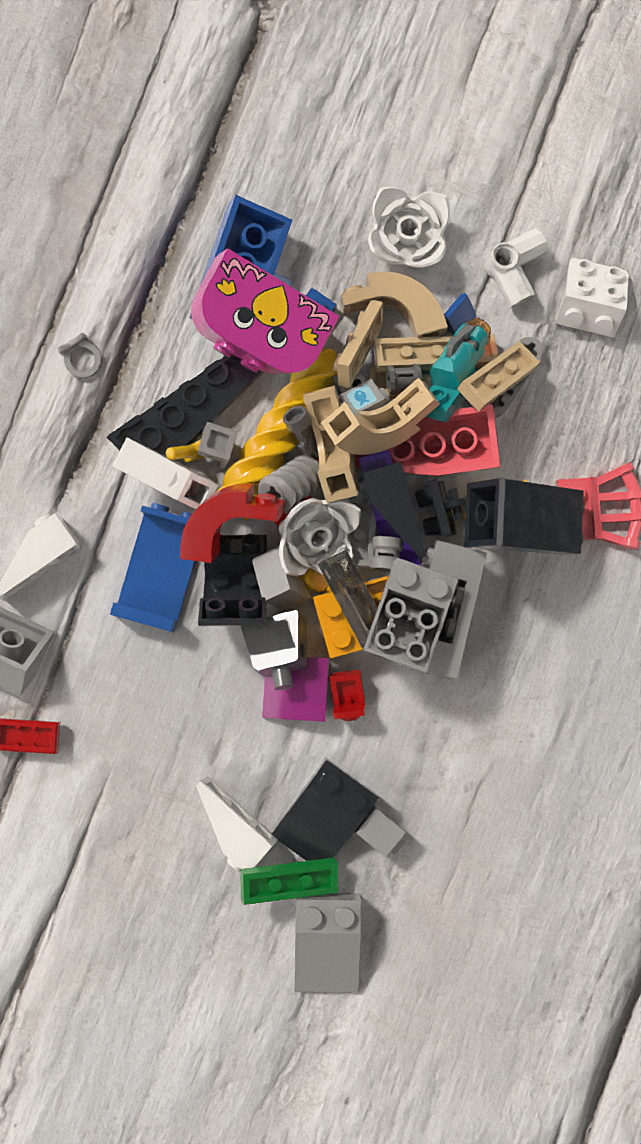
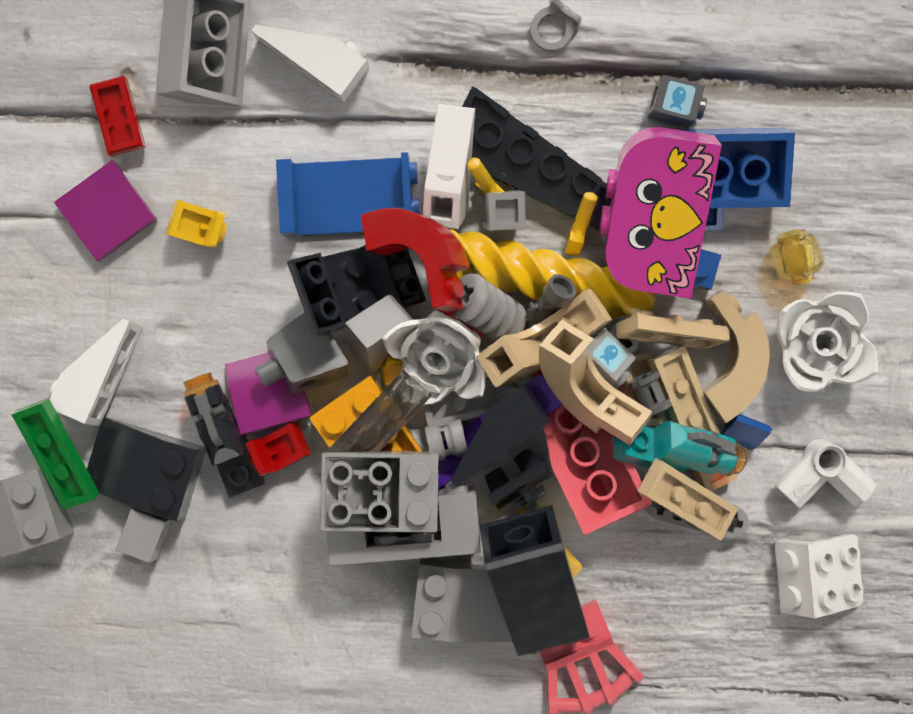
camera: 75 degrees right, 5 degrees up
(100, 773) = (105, 210): none -> magenta tile
(139, 699) = (196, 224): none -> yellow bracket
(177, 280) = (677, 102): none -> dark grey brick
(252, 393) = (579, 226): none -> yellow bar
(319, 738) = (221, 434): none -> black plate
(333, 228) = (797, 256): none -> clear yellow head
(522, 590) = (456, 604): none -> light grey slope

